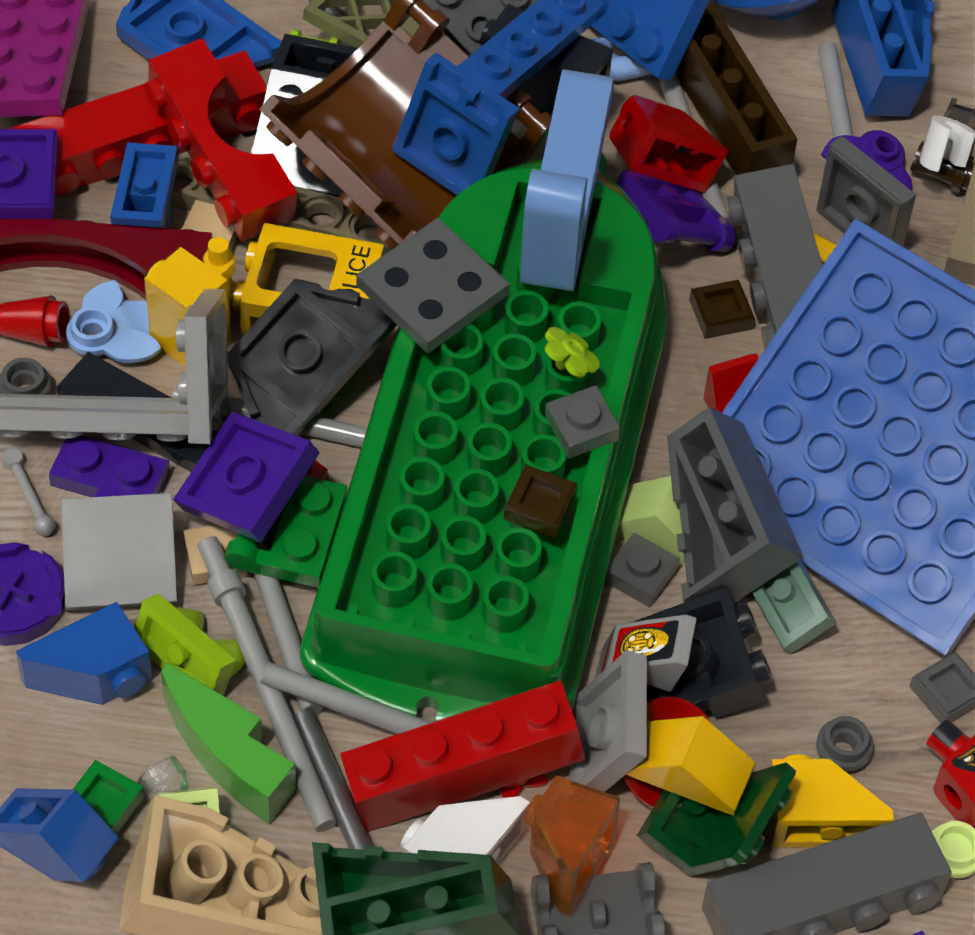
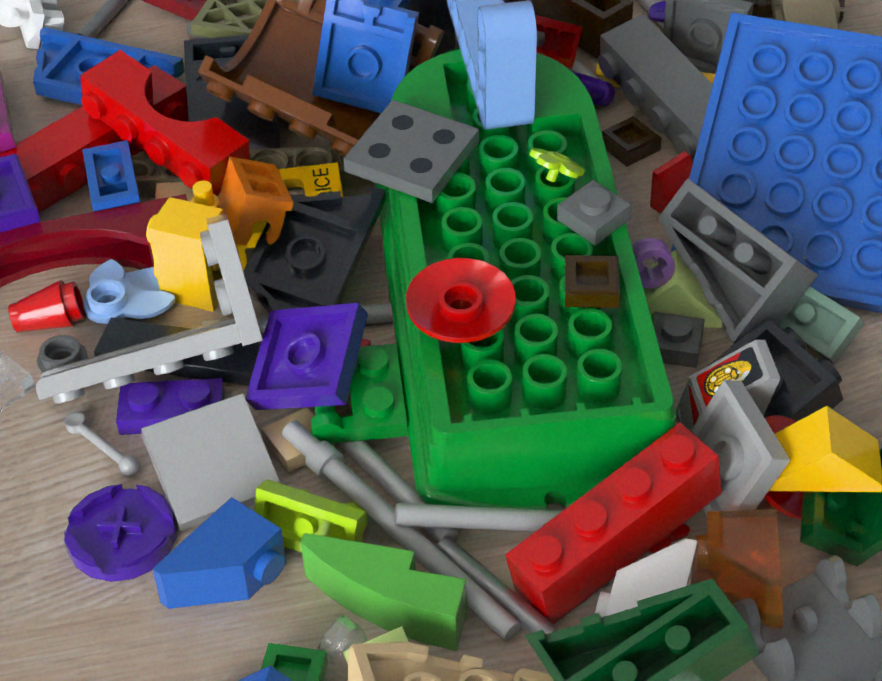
camera: 15 degrees left, 10 degrees down
(267, 273) = (253, 194): none -> orange hinge
(395, 463) = (460, 300): none -> red dish
(635, 494) = (659, 252): none -> medium lavender bush

